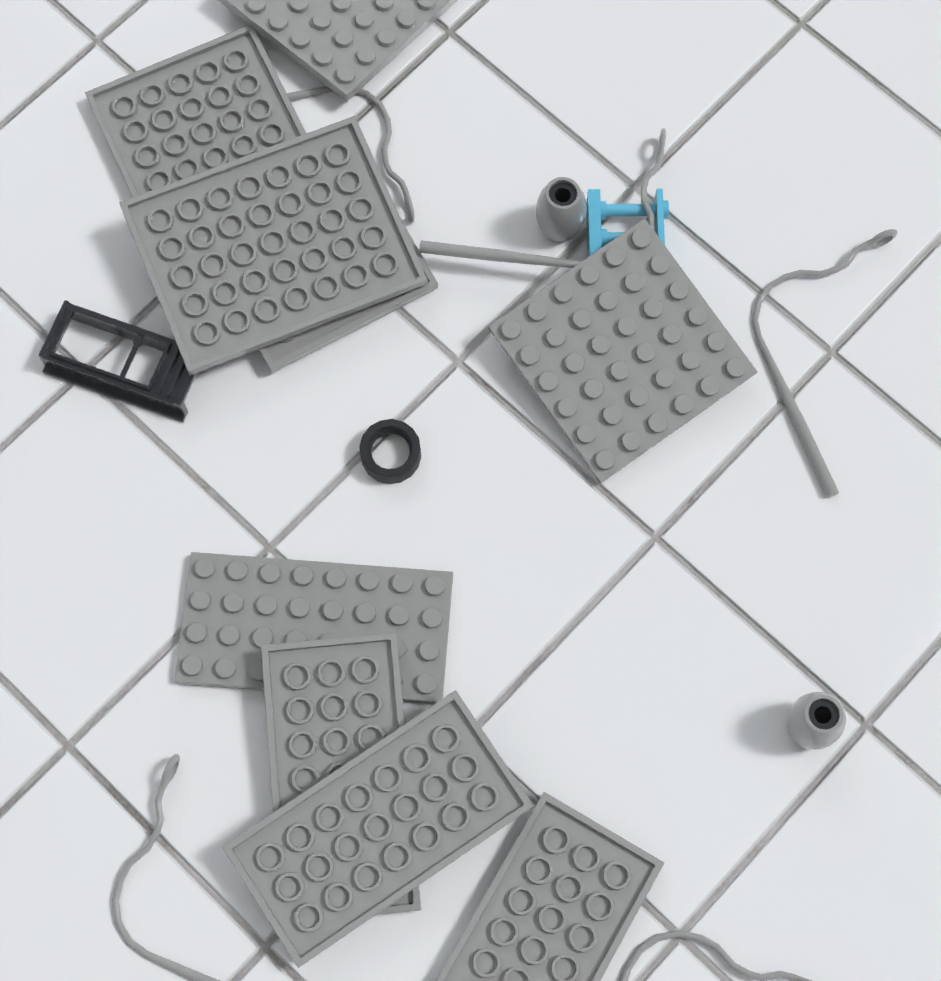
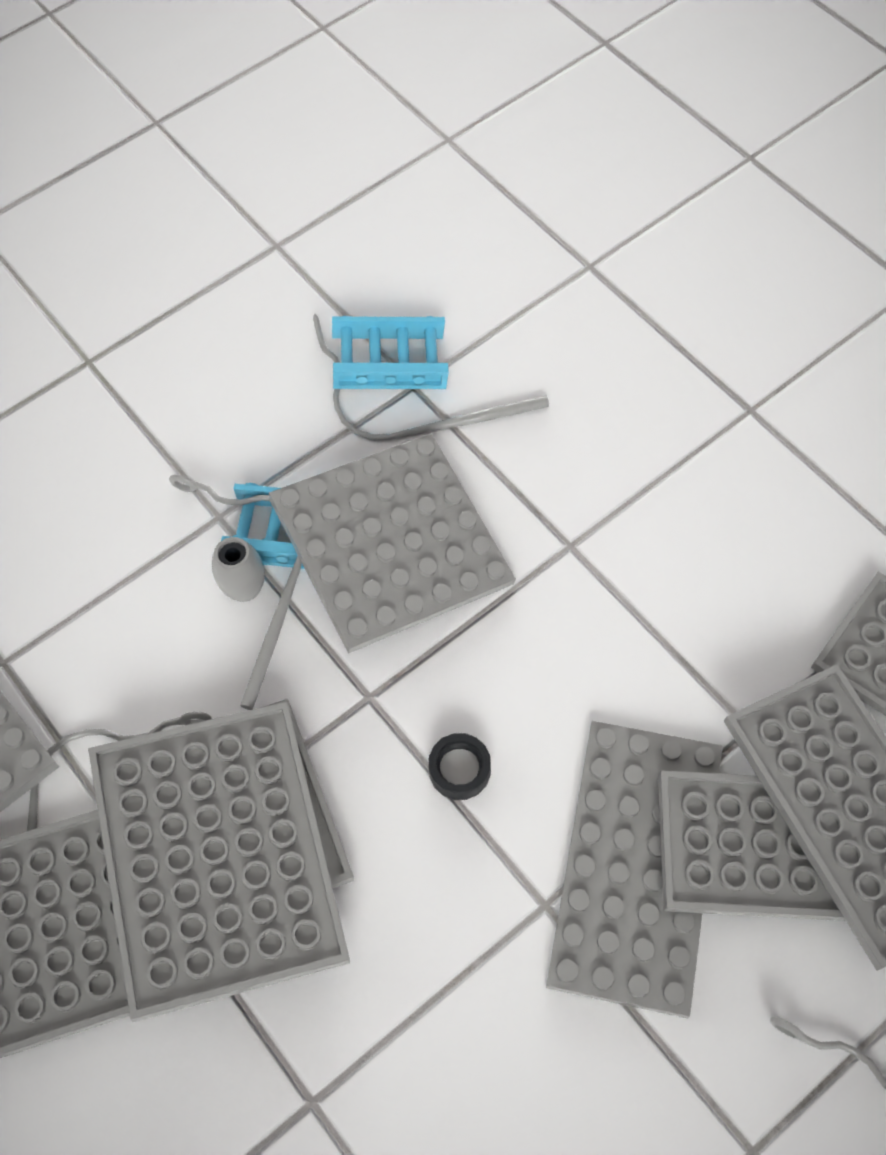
camera: 80 degrees left, 10 degrees down
(166, 388) = (347, 985): black piece -> none
(816, 720) = (759, 431): light grey piece -> none
(836, 335) = (389, 375): none -> medium azure fence

